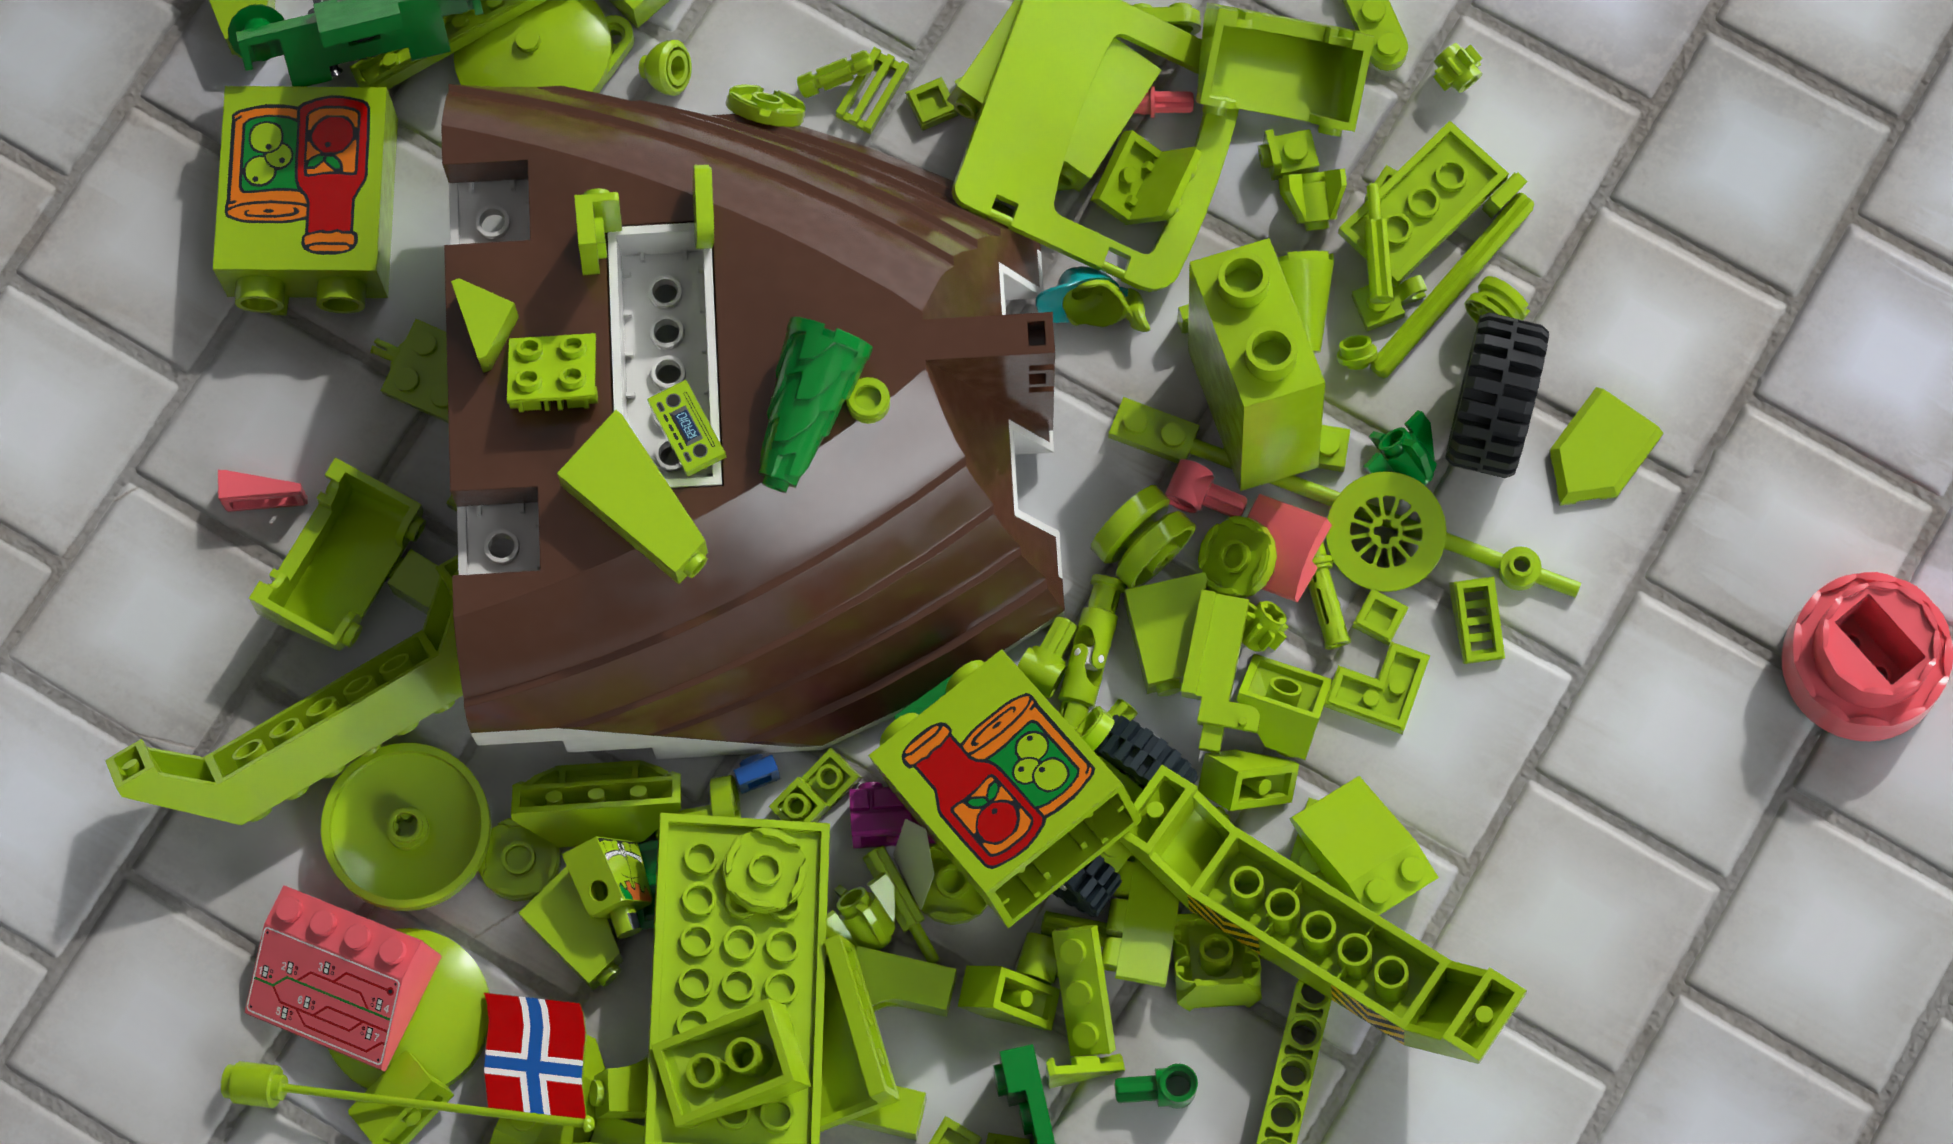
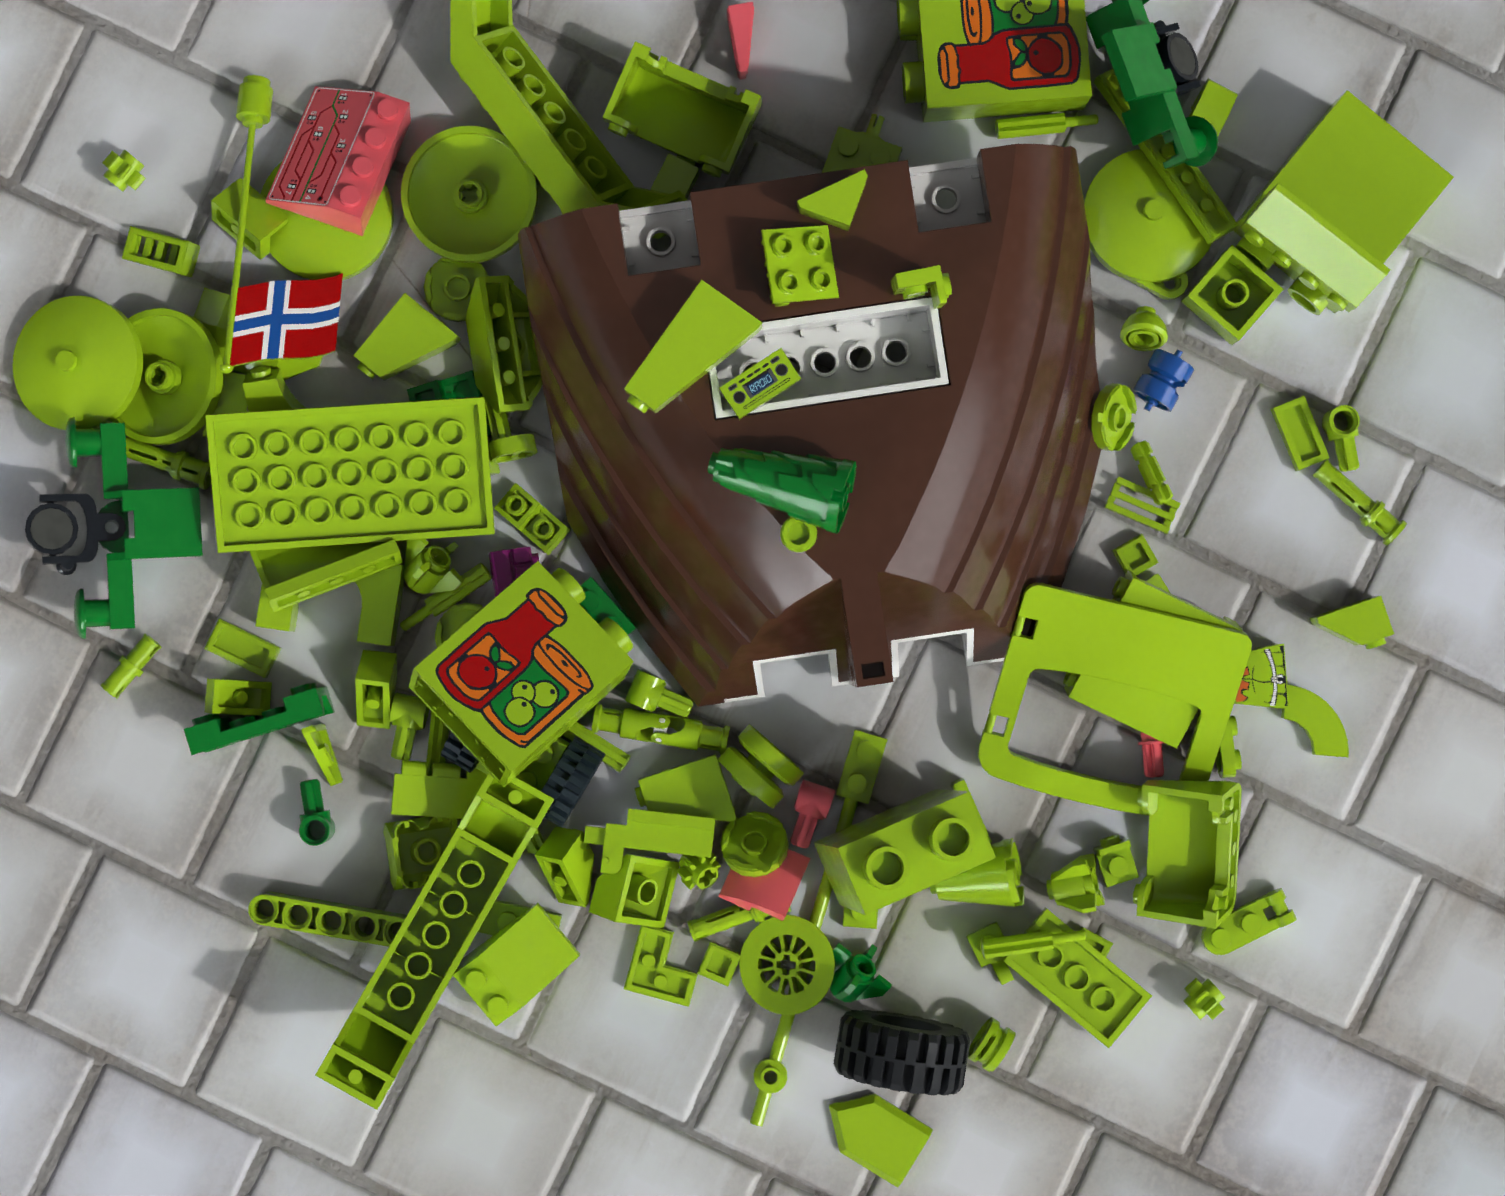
camera: 85 degrees right, 15 degrees up
(409, 164) = (1040, 124): none -> lime axle
(610, 881) = (432, 364): lime torso -> none
(703, 207) = (956, 376): lime tile -> none
(721, 47) = (1166, 374): none -> blue wheel
(731, 1064) = (277, 476): lime slope -> none
(756, 772) = (542, 469): blue plate -> none
(764, 870) = (445, 486): lime tile -> none
(915, 860) = (471, 605): white sticker -> none
(1083, 990) = (382, 749): lime plate -> none
(1092, 299) = (968, 708): lime hair -> none
(1095, 727) = (588, 740): lime tile -> none
(1144, 181) = (1076, 743): lime bracket -> none
(1356, 352) = (943, 929): lime plate -> none
(1452, 285) = (1011, 1005): lime axle -> none
(1460, 606) = (735, 1028): lime slope -> none
(1504, 194) = (1092, 1045): lime tile -> none

